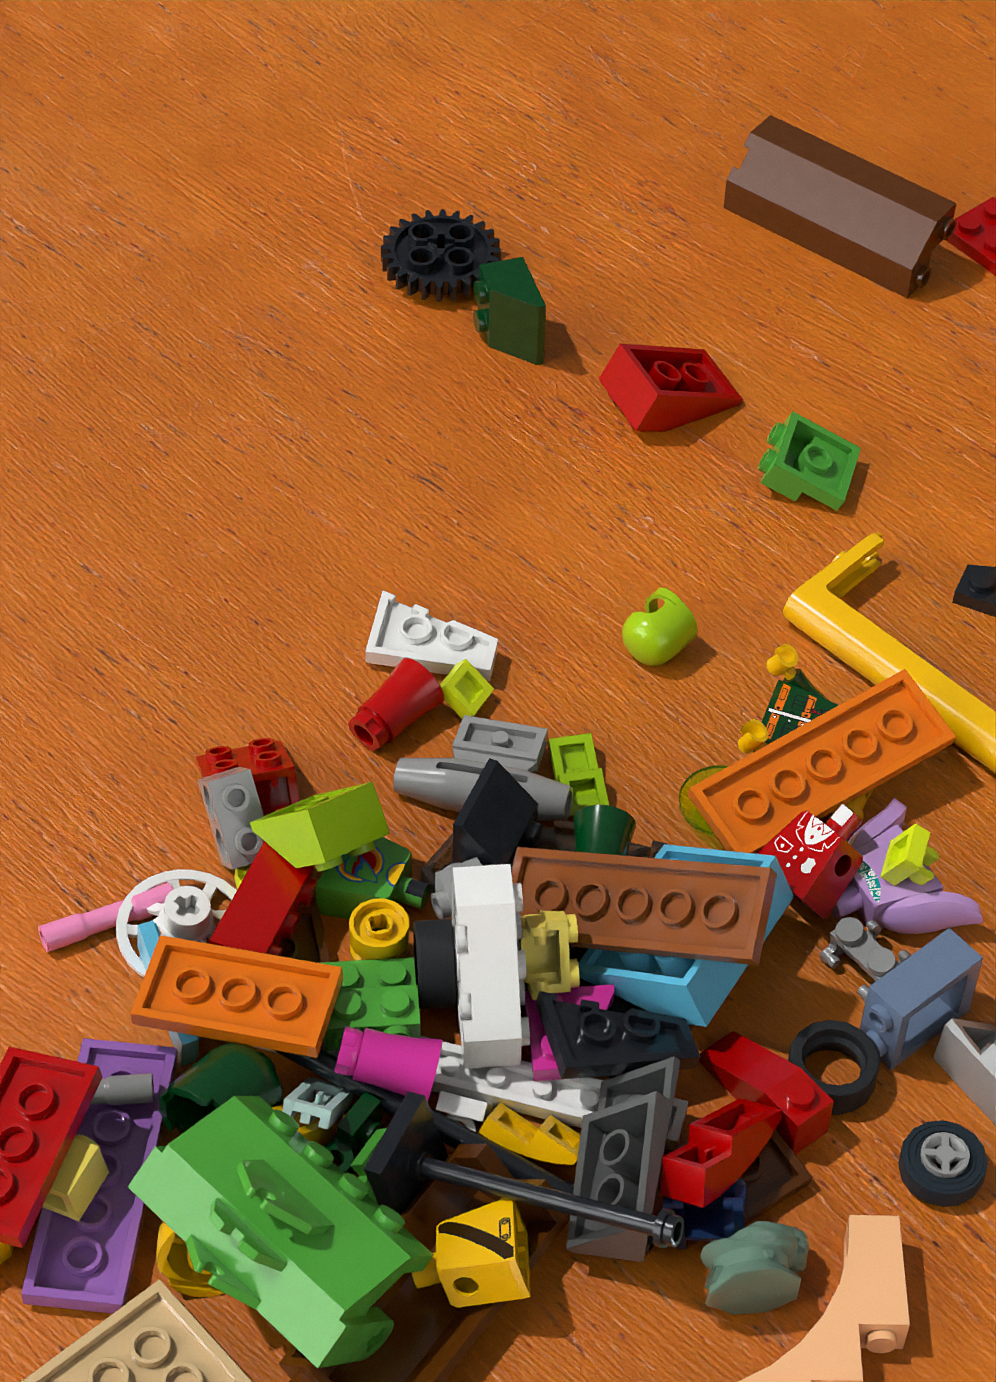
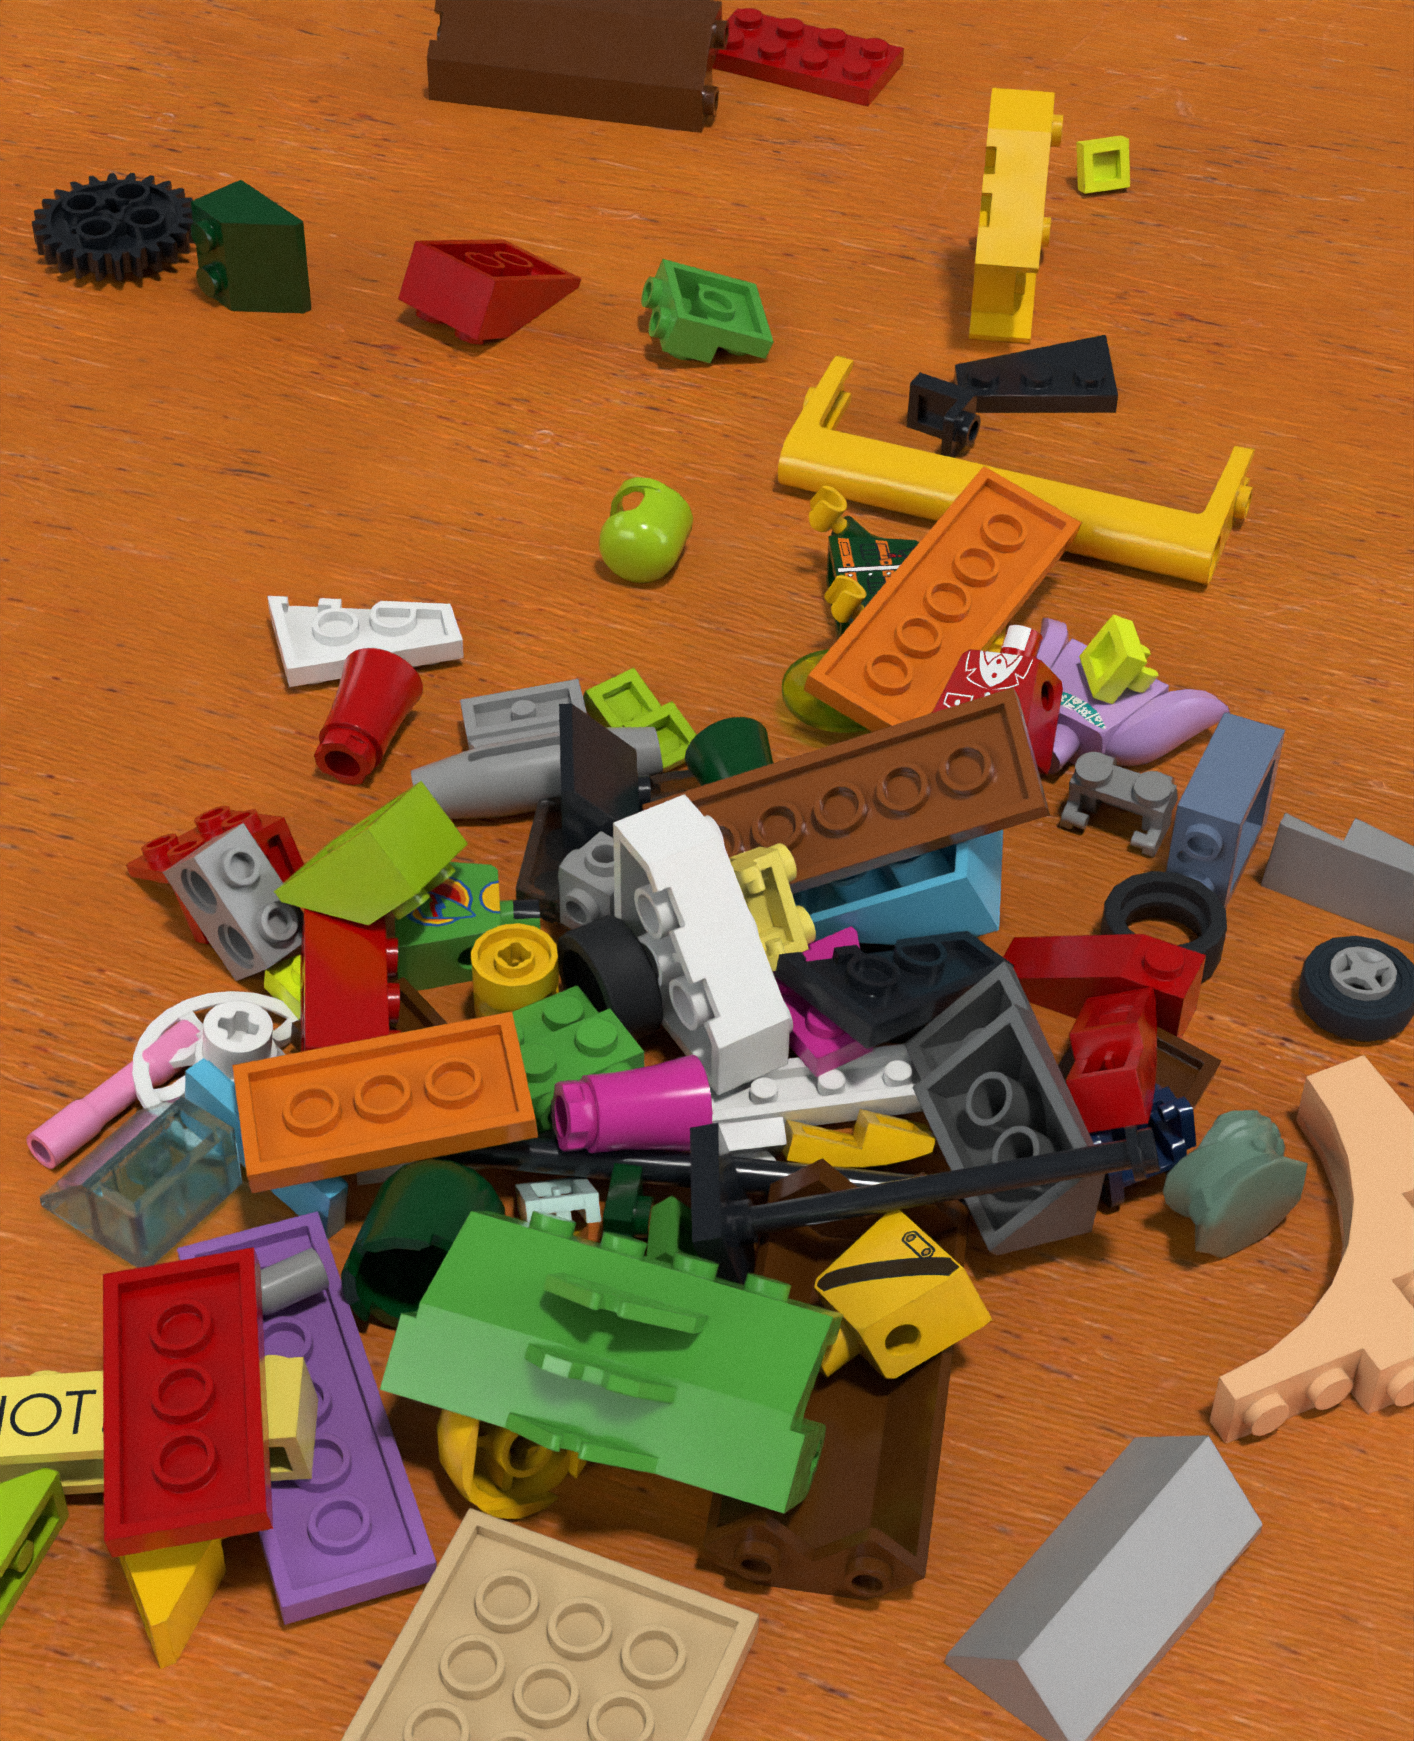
camera: 25 degrees left, 5 degrees down
(88, 987) = (150, 1181): none -> clear light blue slope
(465, 689) = (443, 671): neon yellow plate -> none
(933, 602) = (943, 412): none -> black bracket

